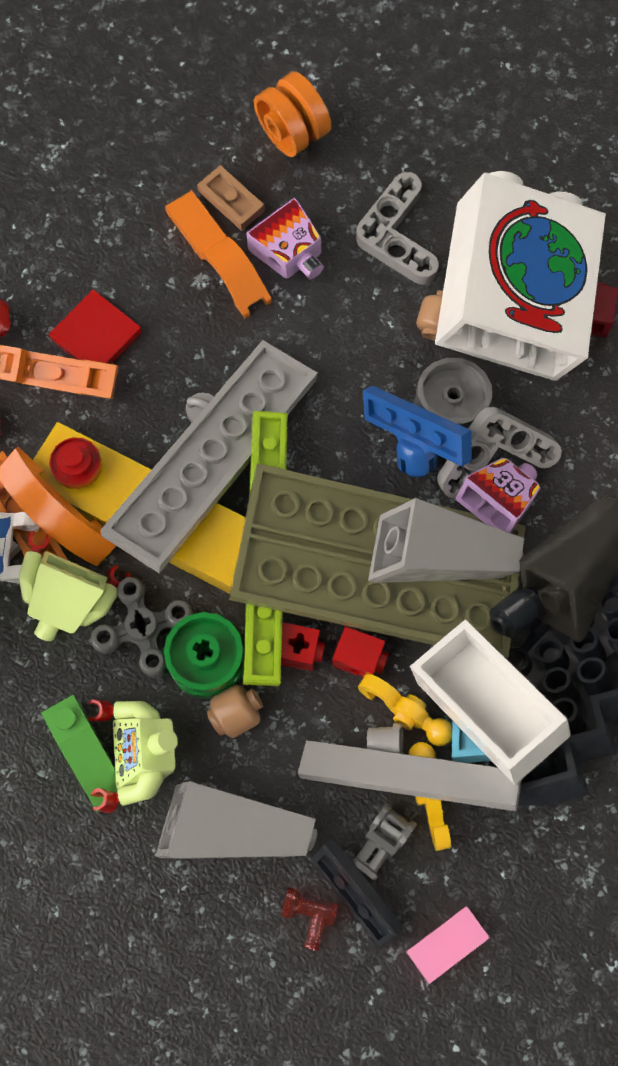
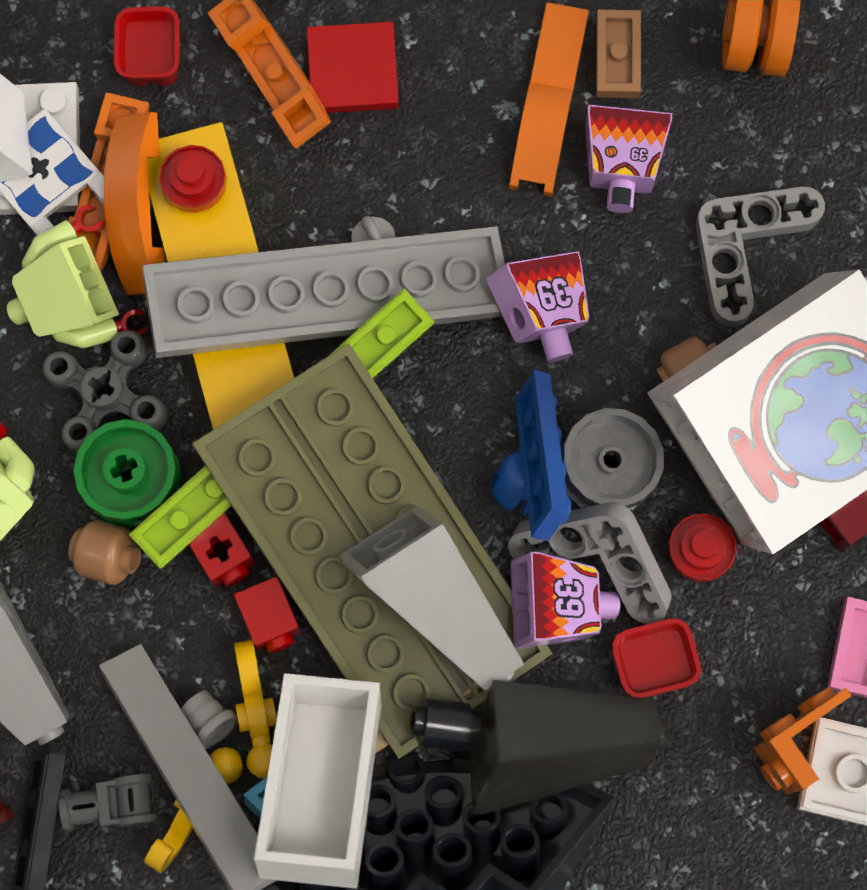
camera: 45 degrees right, 5 degrees up
(329, 353) = (542, 301): none -> lavender torso
(540, 399) = (702, 547): none -> red plate
(579, 475) = (656, 658): none -> red piece

